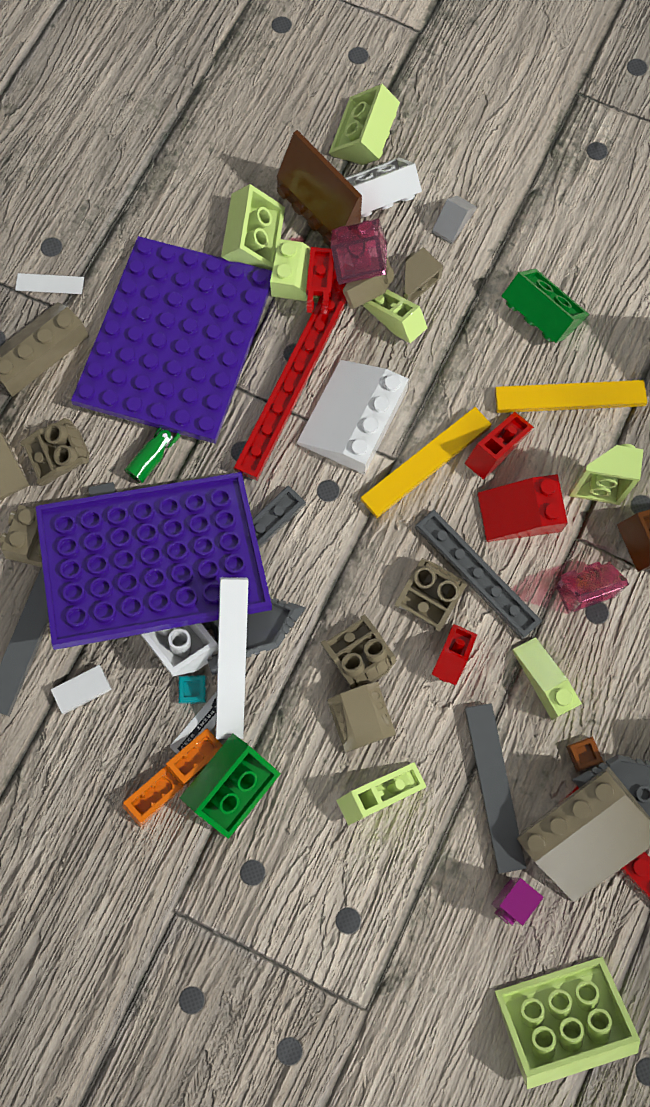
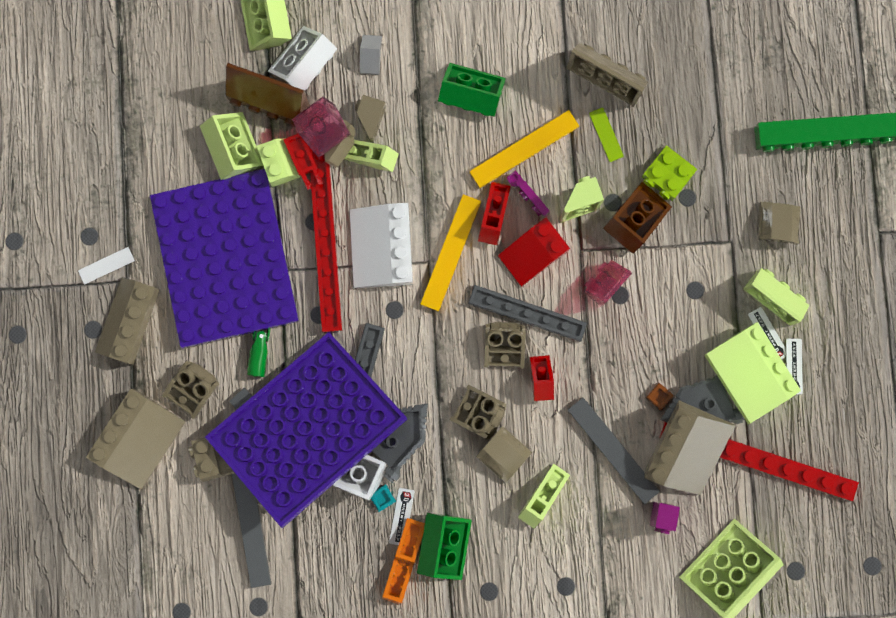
camera: 30 degrees left, 10 degrees up
(81, 689) = (309, 539): white tile -> none
(231, 657) = (399, 465): white tile -> none
(546, 678) = (609, 360): yellowish green slope -> none
(550, 443) = (528, 194): none -> magenta hinge

